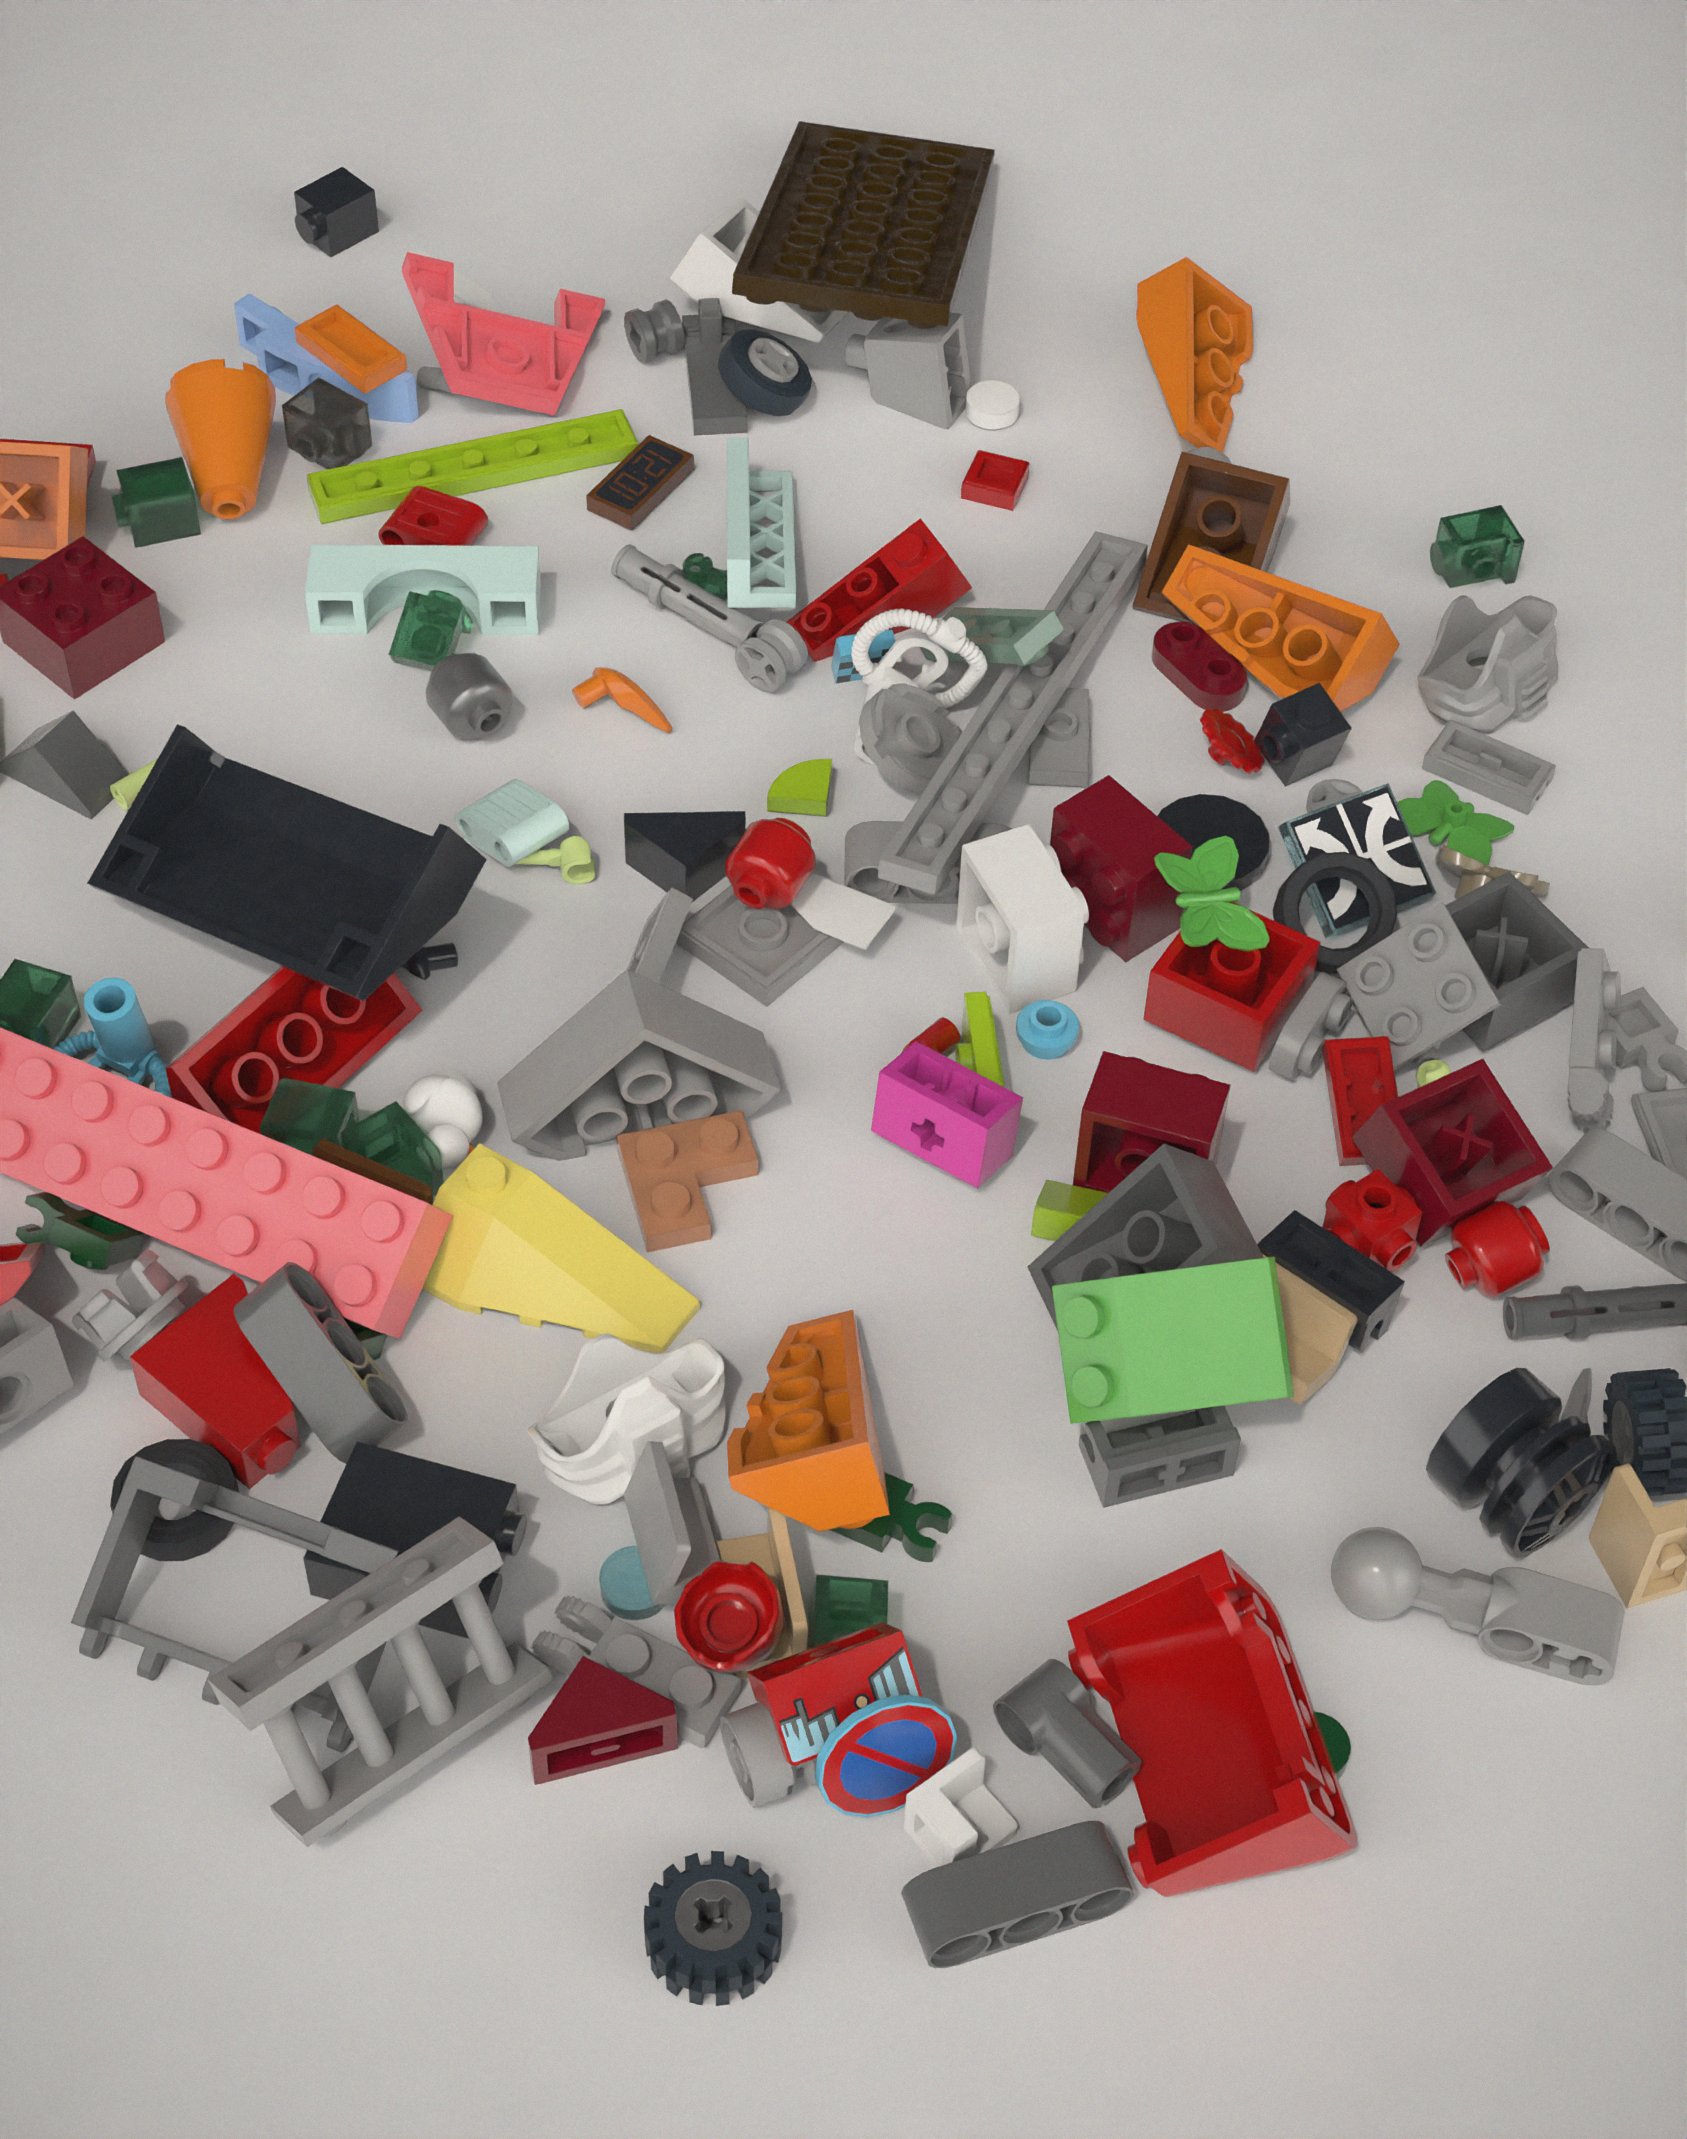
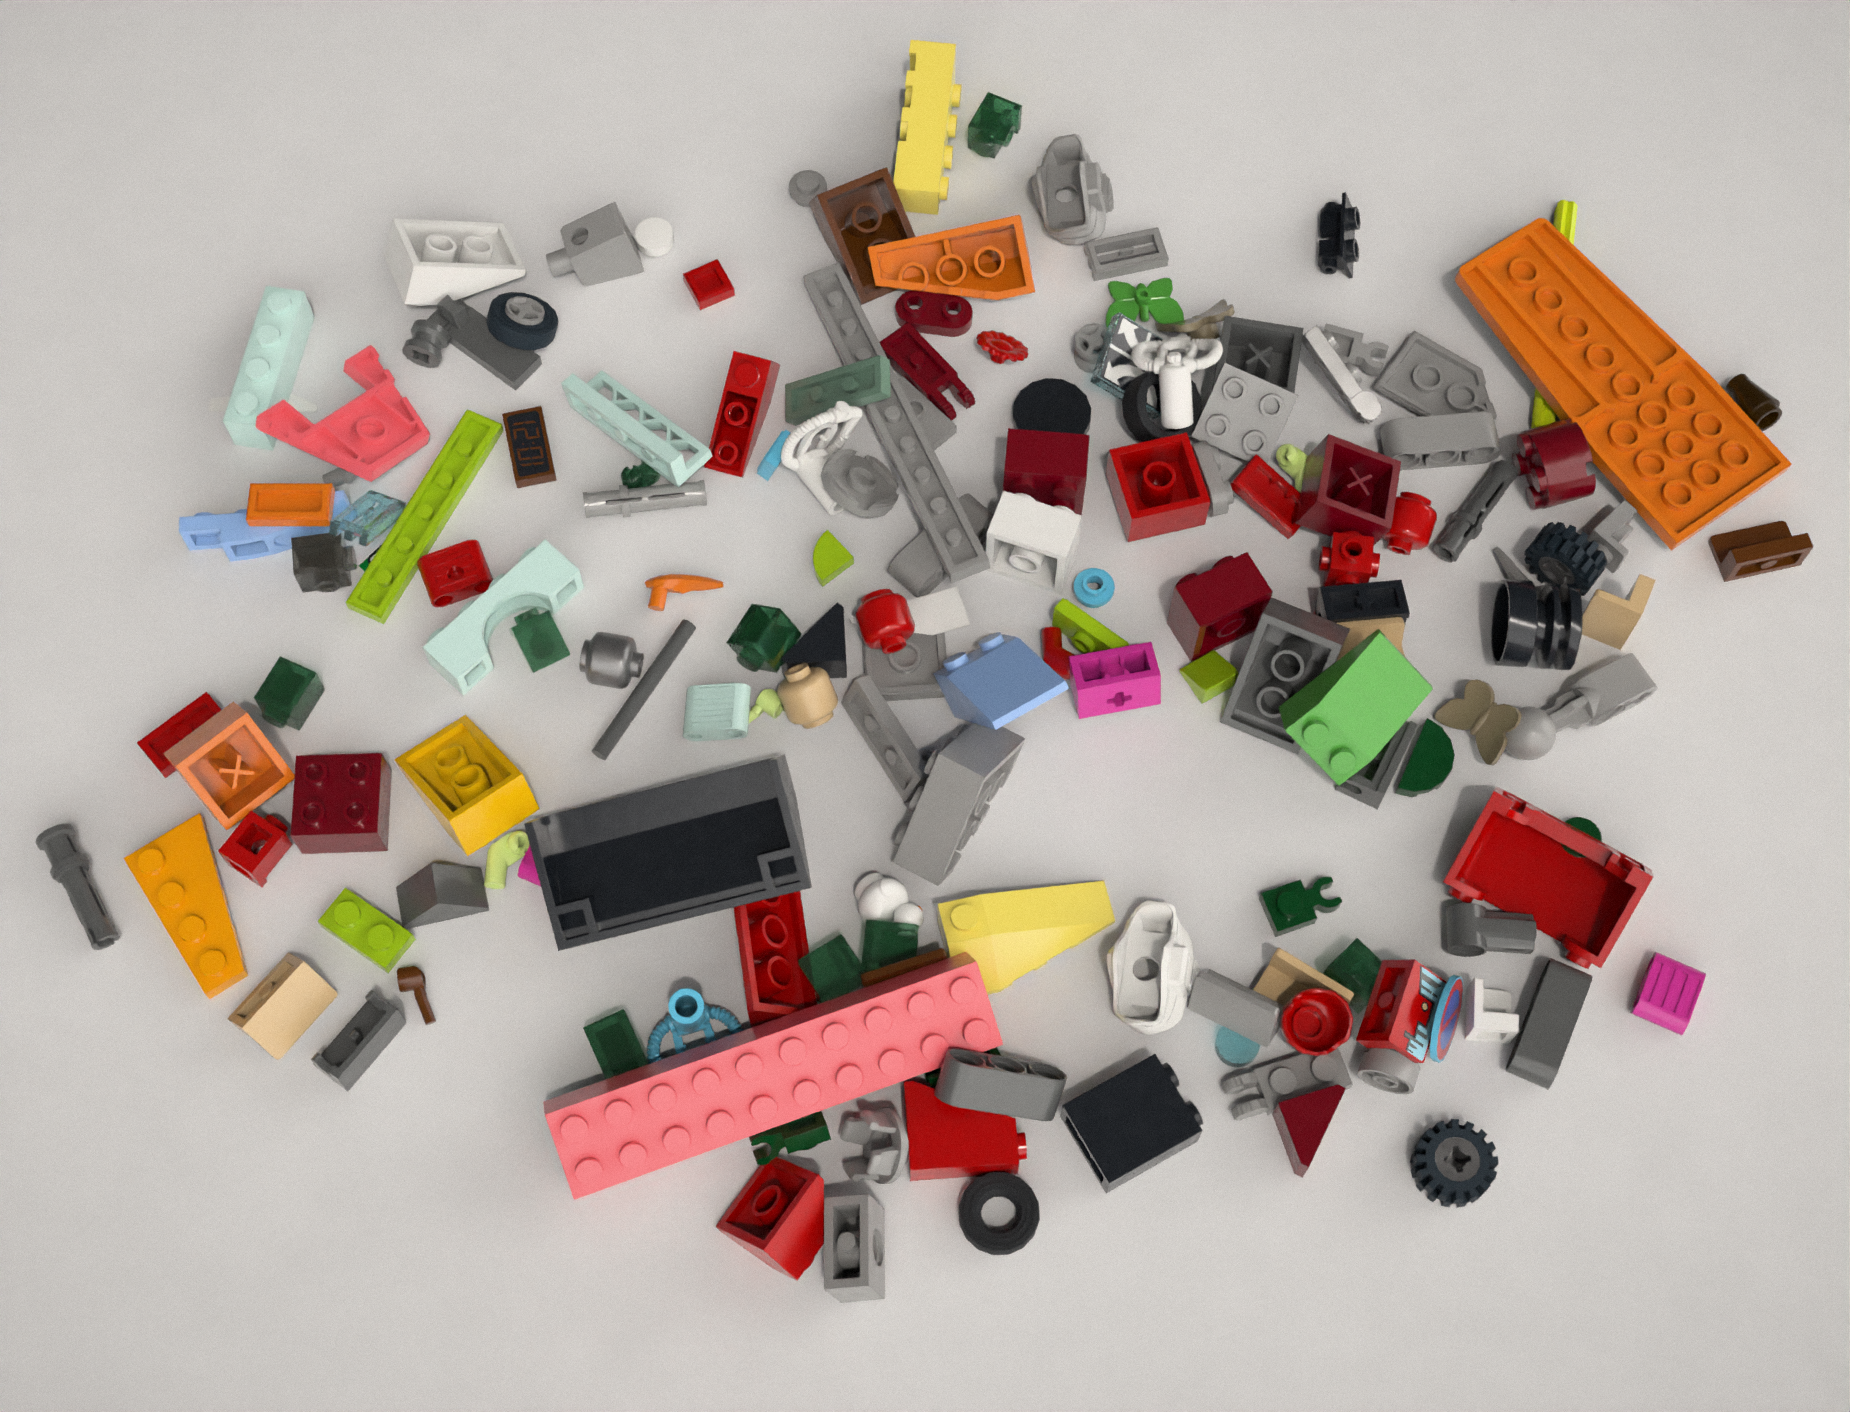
camera: 45 degrees left, 15 degrees up
(124, 1541) = (1041, 1205): dark grey hinge -> none
(208, 685) = (468, 784): none -> yellow slope
(222, 431) = (282, 622): orange cone -> none
(336, 212) = (144, 416): black brick -> none
(347, 1628) = (1220, 1202): light grey fence -> none
(407, 415) = (374, 520): none -> clear light blue tile
(474, 754) = (643, 689): none -> dark grey bar
(498, 242) = (268, 364): none -> light aqua brick
(611, 871) = (807, 696): none -> tan head
(632, 786) = (763, 638): none -> clear green brick
(669, 1166) = (1010, 825): nougat plate -> none
(771, 655) = (729, 495): light grey wheel -> none
(807, 997) = (997, 681): none -> light blue slope
(813, 1431) = (1242, 897): orange wedge -> none
(866, 225) = (483, 178): dark brown plate -> none
(1120, 700) = (925, 369): none -> dark red hinge
(1196, 343) = (715, 105): orange wedge -> none
(1208, 906) = (1110, 452): bright green piece -> none
(1215, 2010) = (1668, 993): none -> dark pink piece
(1220, 1508) = (1428, 763): none -> dark green tile
(1302, 734) = (1036, 314): black brick -> none
(1335, 1505) = (1482, 717): none -> dark tan animal
(1362, 874) = (1176, 373): none -> white piece
(1392, 493) = (927, 126): none -> light yellow wedge

